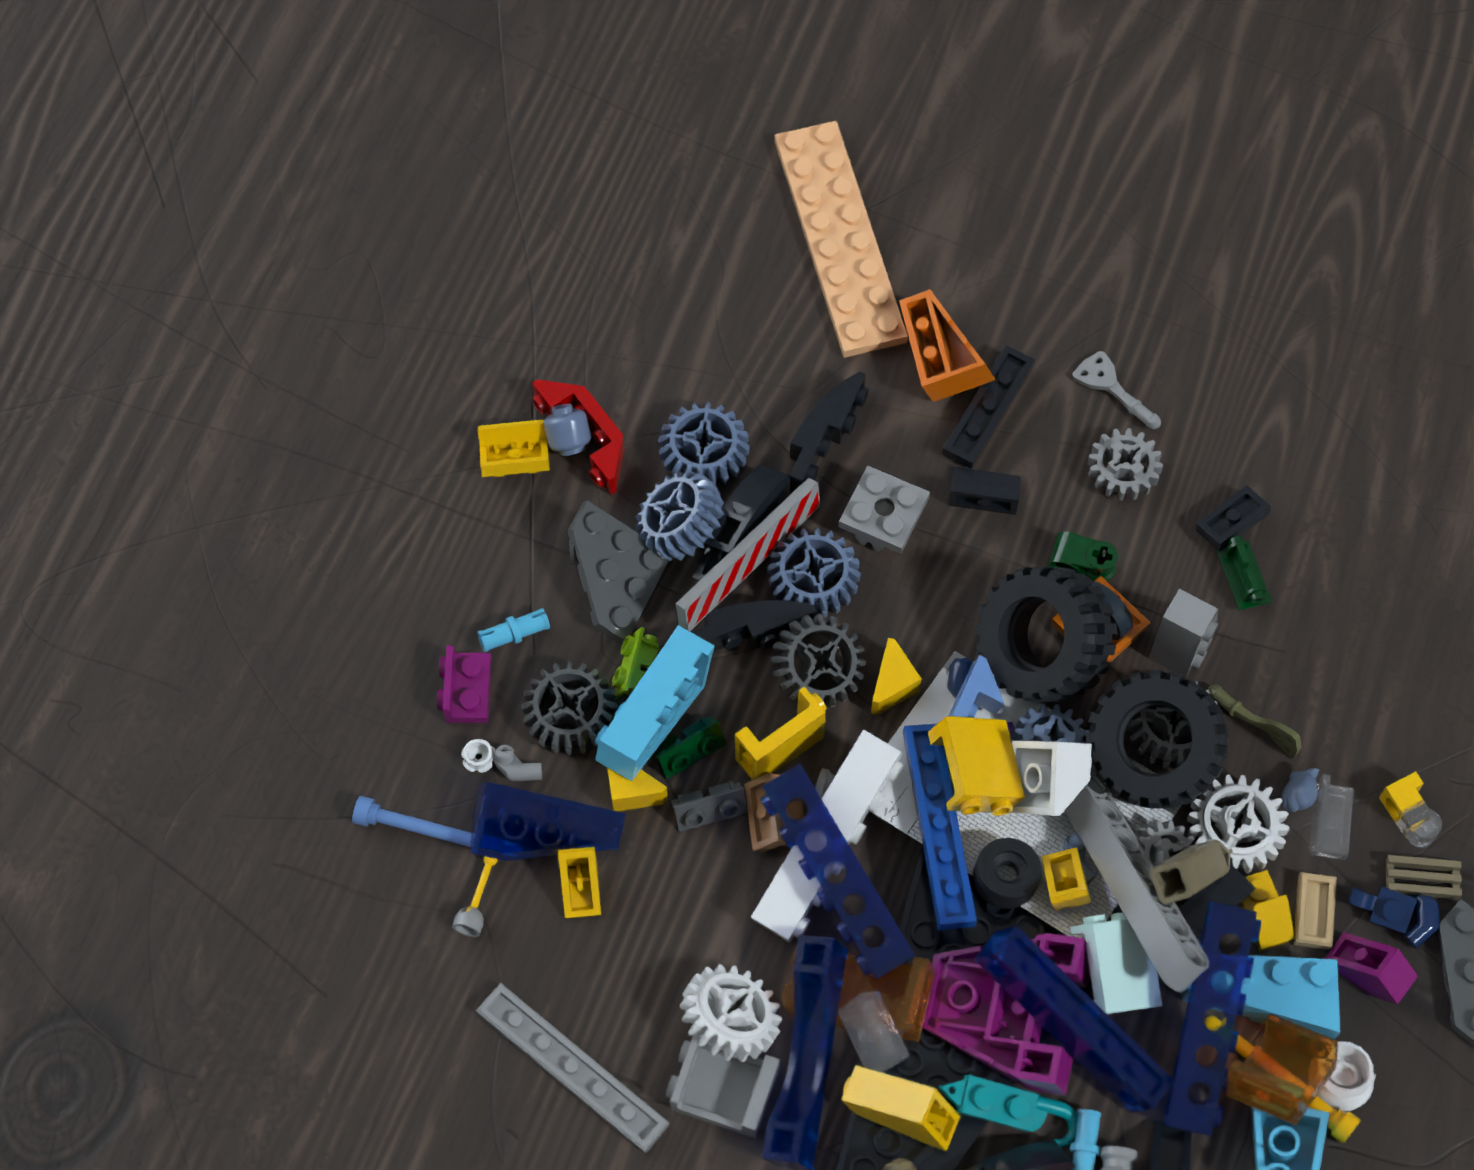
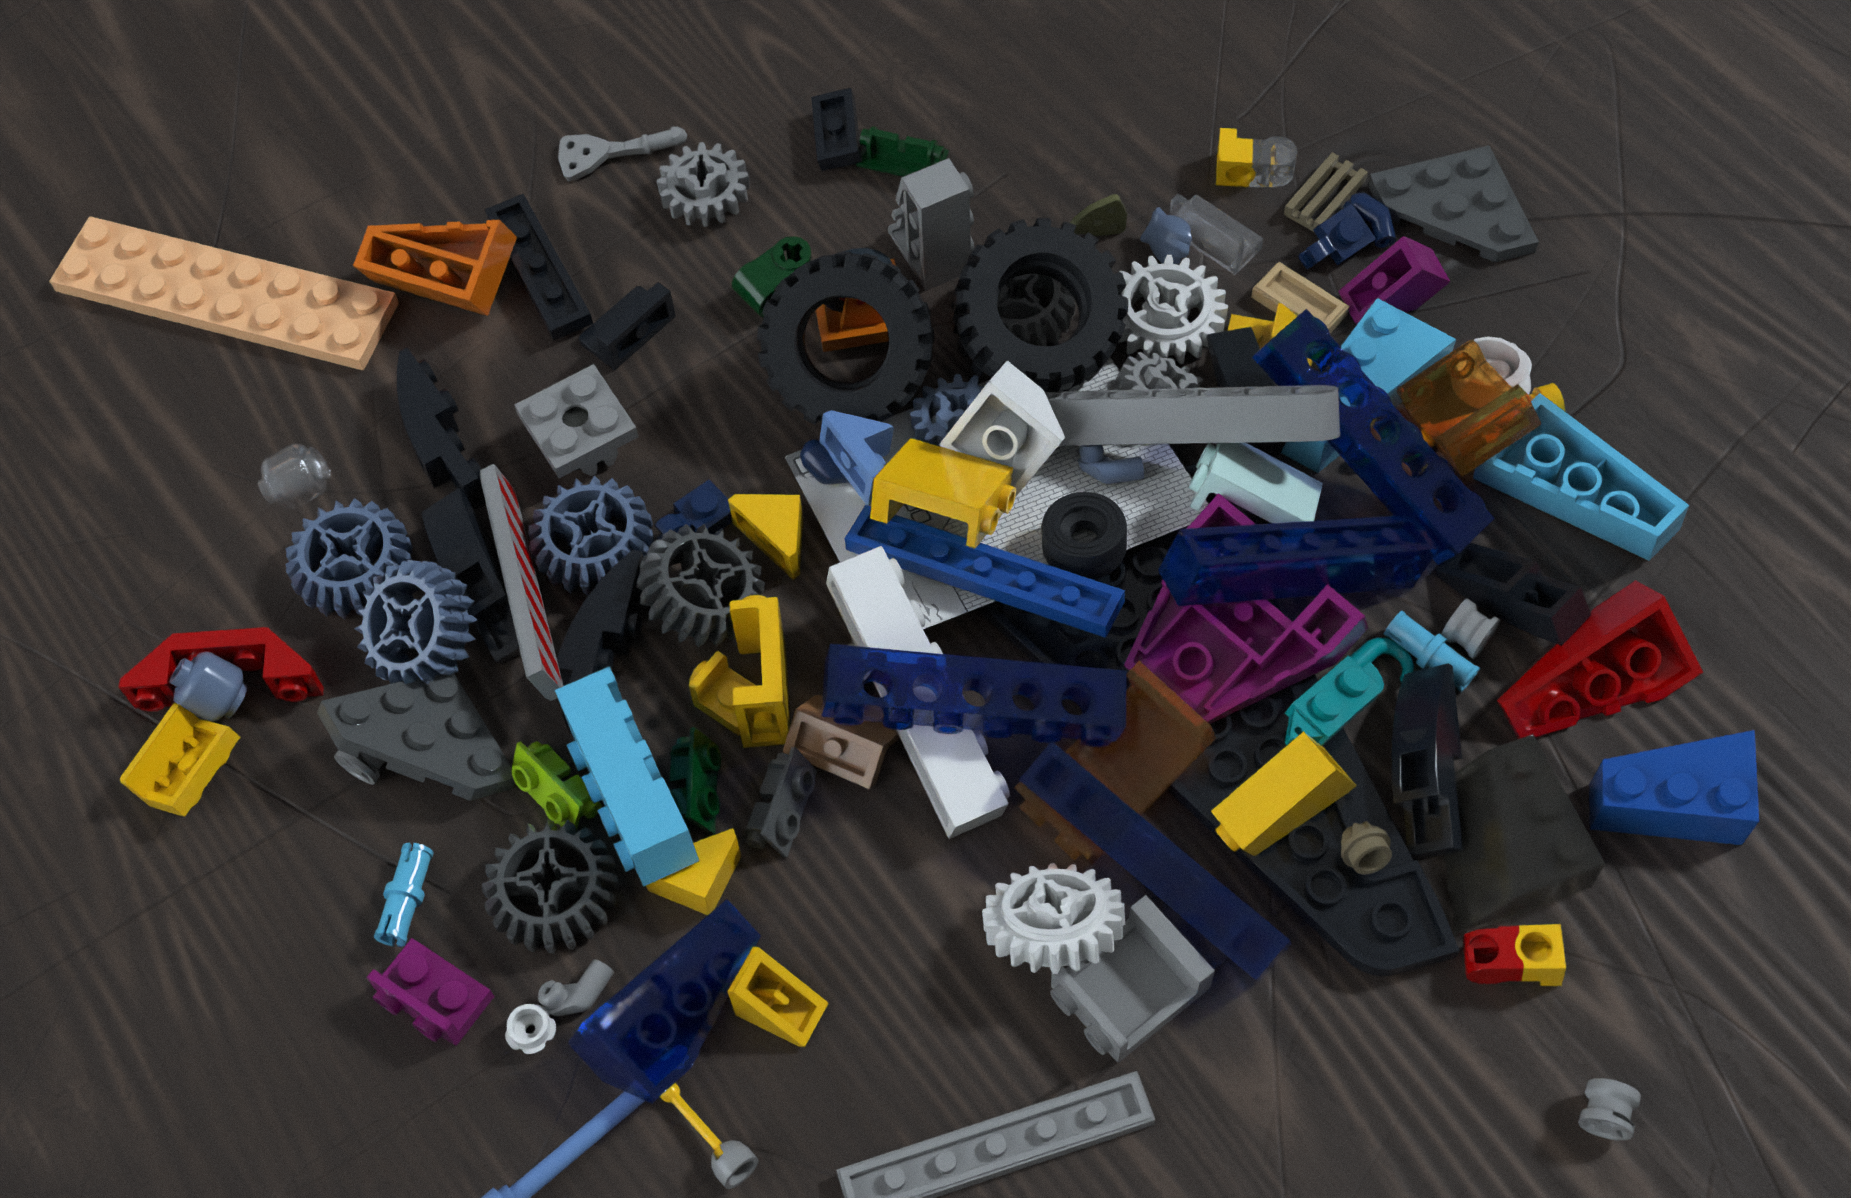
camera: 55 degrees left, 5 degrees down
(736, 374) = (294, 476): none -> clear head
(761, 716) = (712, 690): none -> yellow bracket
(873, 1032) = (1175, 778): clear slope -> none
(875, 626) = (700, 506): none -> dark blue plate
(1065, 879) = (1133, 480): yellow slope -> none
(1190, 870) = (1210, 355): dark tan piece -> none

